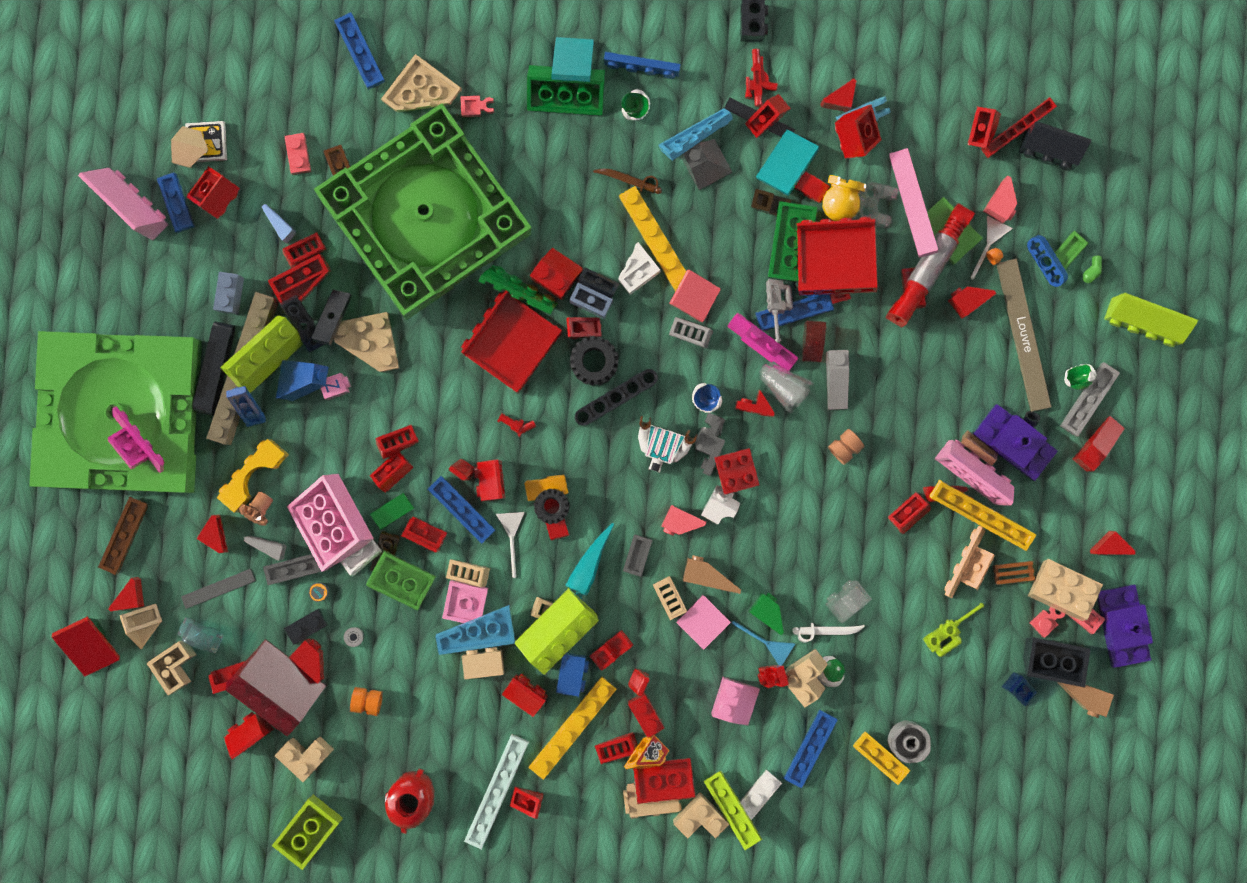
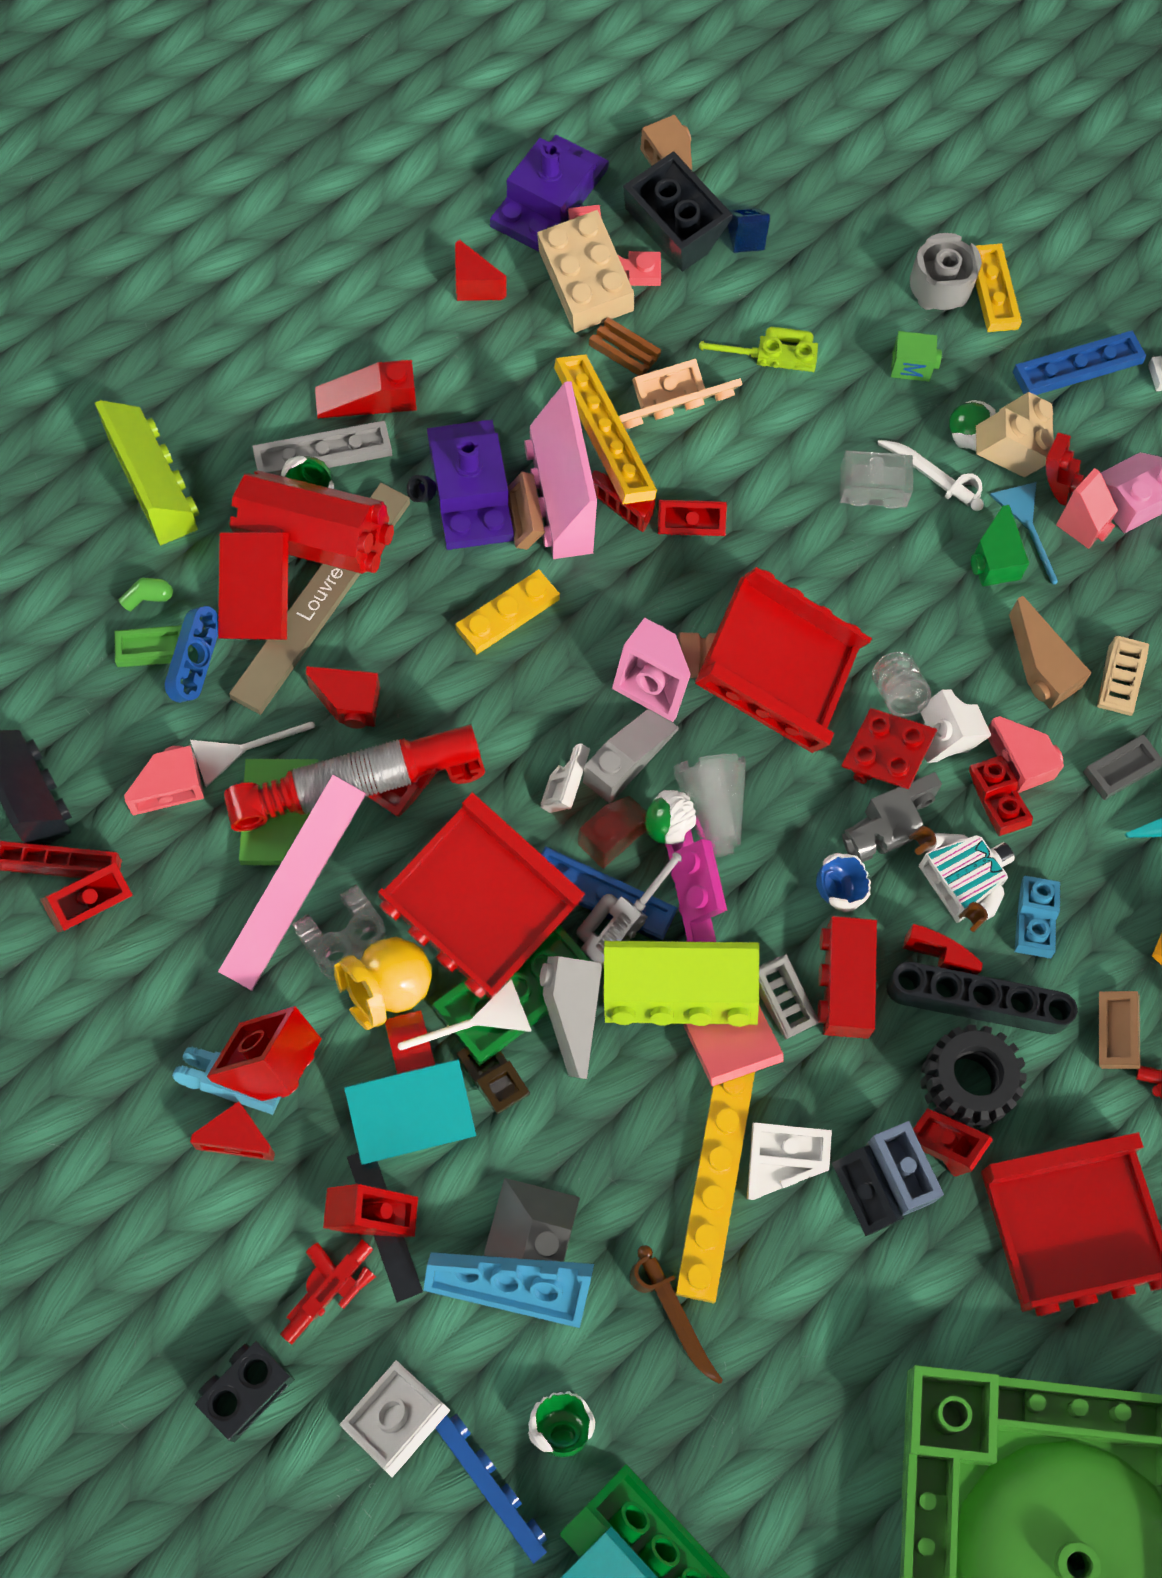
camera: 140 degrees left, 20 degrees down
(518, 289) = (1017, 1315): green wing -> none
(554, 433) = (1119, 1030): none -> medium nougat tile
(556, 273) = (921, 1265): red slope -> none
(621, 454) = (1037, 917): none -> dark azure slope
(639, 404) = (950, 953): none -> red slope
(672, 360) = (848, 977): none -> red brick
(676, 496) = (999, 795): none -> red slope
(693, 55) = (394, 1418): none -> white tile
(703, 622) = (1097, 611): bright pink tile -> none
(731, 294) = (681, 982): none -> lime slope
(744, 665) = (1089, 511): none -> coral slope
(755, 505) = (901, 684): none -> clear wheel
(761, 406) = (779, 806): red slope -> none
(768, 253) = (571, 1001): none -> slope
(789, 226) = (500, 1012): none -> white piece
(796, 360) = (670, 817): none -> hair
(812, 470) = (781, 659): none -> red panel
(850, 341) = (565, 781): none -> white tile
(861, 416) = (653, 670): none -> bright pink slope
(884, 683) = (915, 356): none -> bright green brick
(943, 397) = (507, 612): none -> yellow plate
(994, 256) = (253, 722): orange hinge -> none
(1052, 307) = (253, 585): none -> red tile
(1057, 354) = (320, 521): none -> red brick

